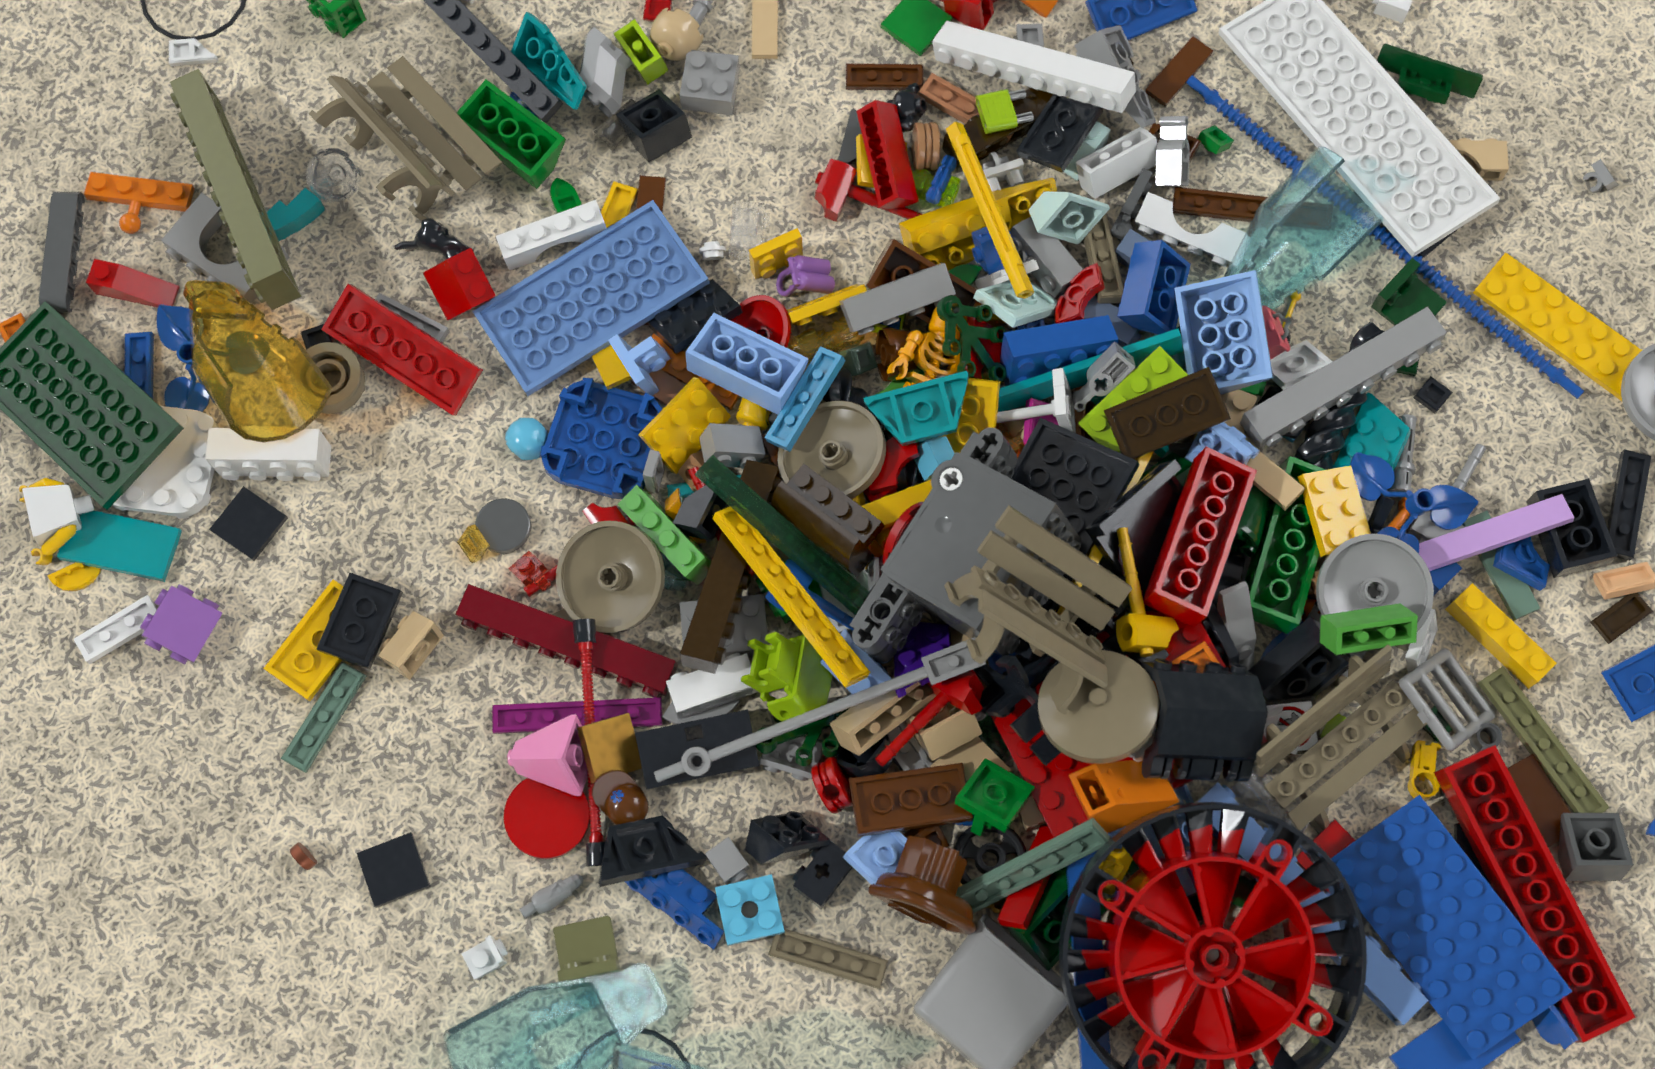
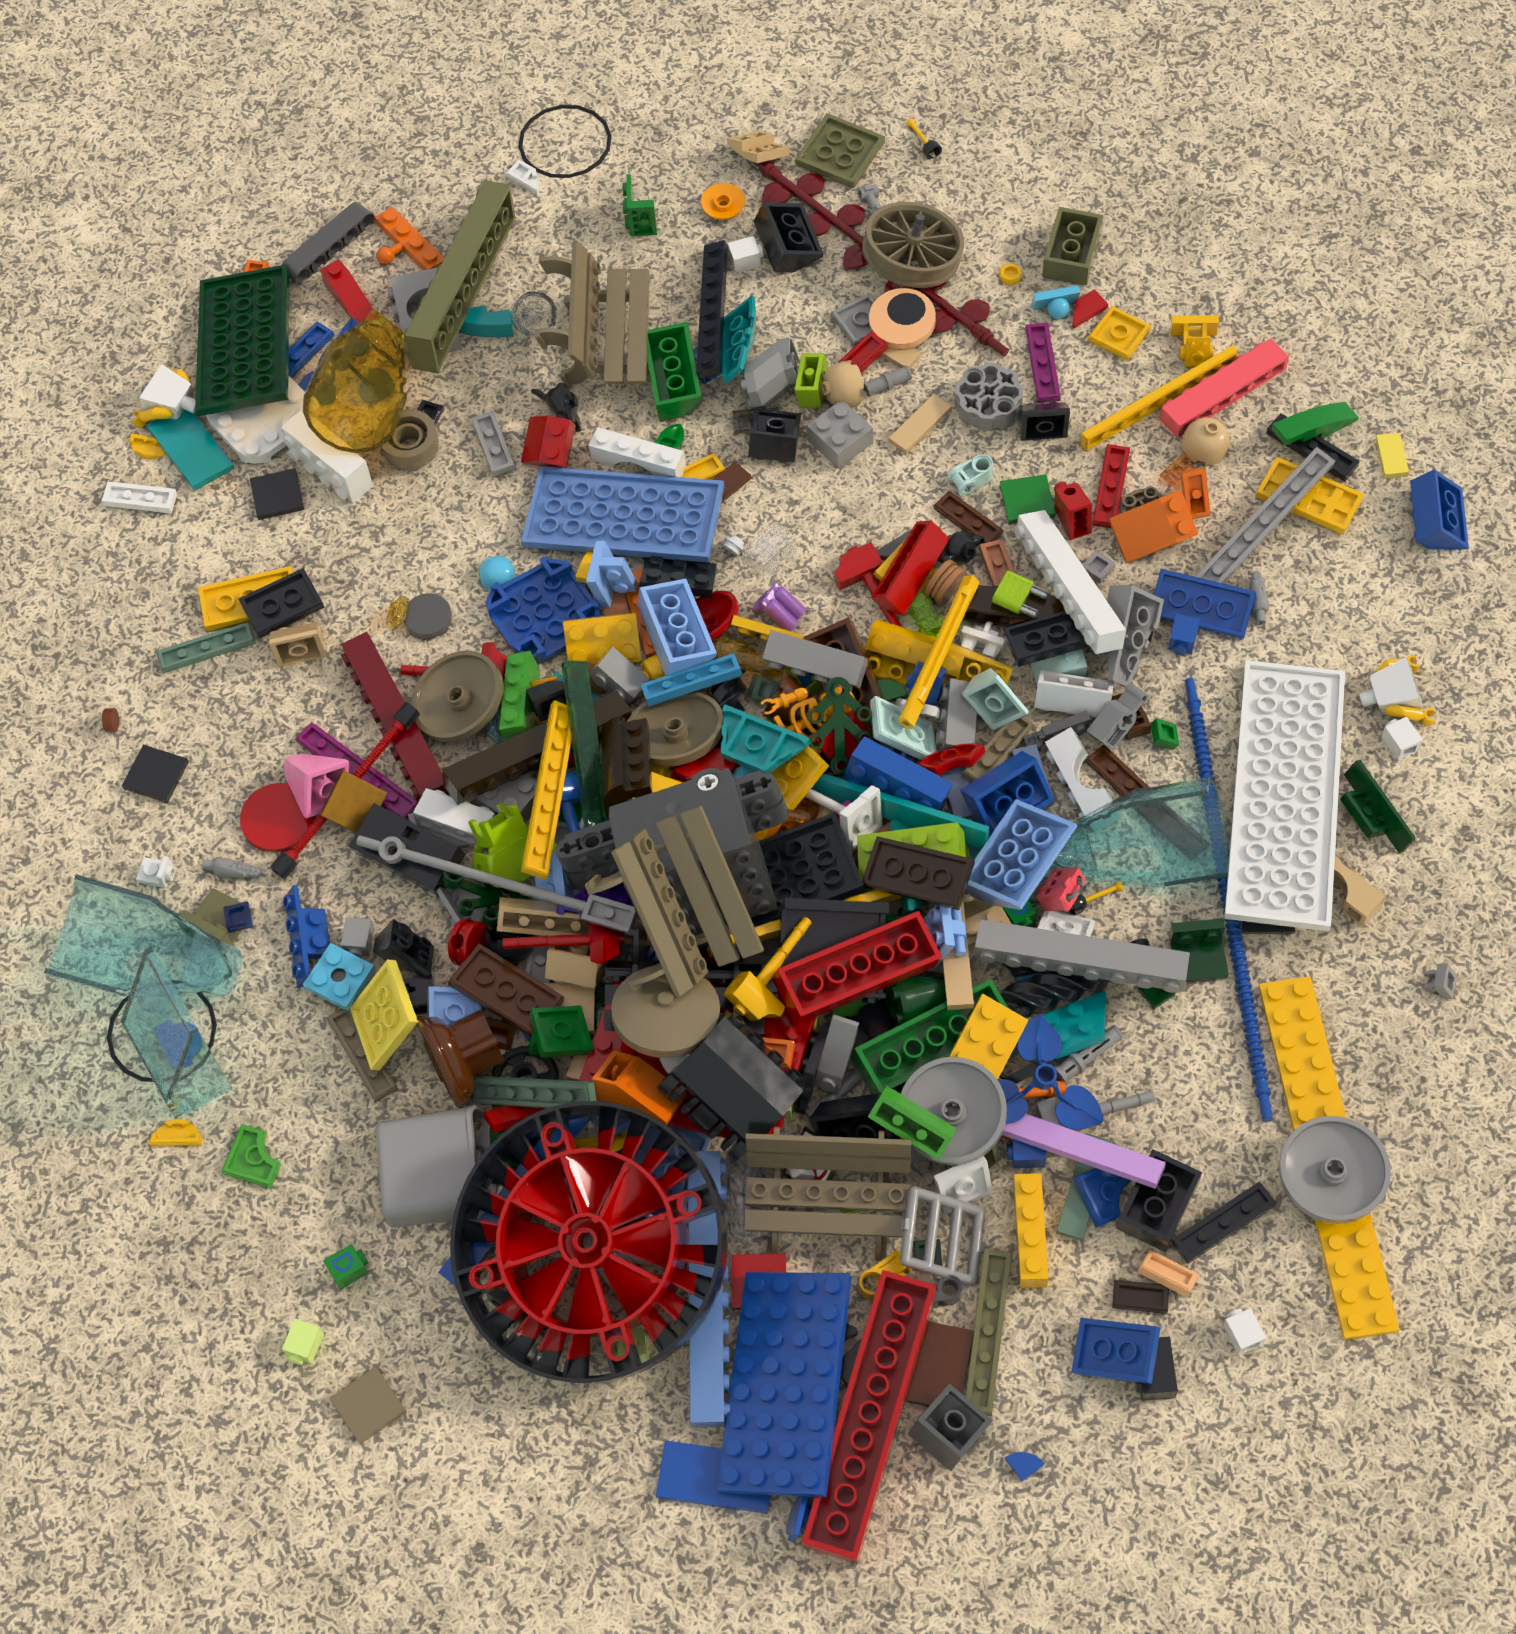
camera: 45 degrees right, 10 degrees down
(180, 623) = (175, 519): medium lavender brick -> none
(402, 349) = (471, 456): red plate -> none
(530, 570) = (414, 656): clear red plate -> none
(604, 933) = (238, 917): none -> clear blue tile
(620, 797) = (329, 840): reddish brown cap -> none
(645, 850) = (311, 884): black wing -> none
(653, 471) = (551, 652): light grey tile -> none
(774, 253) = (764, 572): yellow plate -> none
(830, 910) = (383, 1015): none -> light yellow plate
(853, 38) = (969, 477): none -> light aqua piece
(941, 179) = (930, 611): blue axle -> none
(1111, 365) = (908, 816): light grey piece -> none
(1152, 43) = (1183, 634): none -> blue brick
(1178, 71) = (1177, 670): reddish brown tile -> none
(1432, 395) = (1153, 1031): black tile -> none

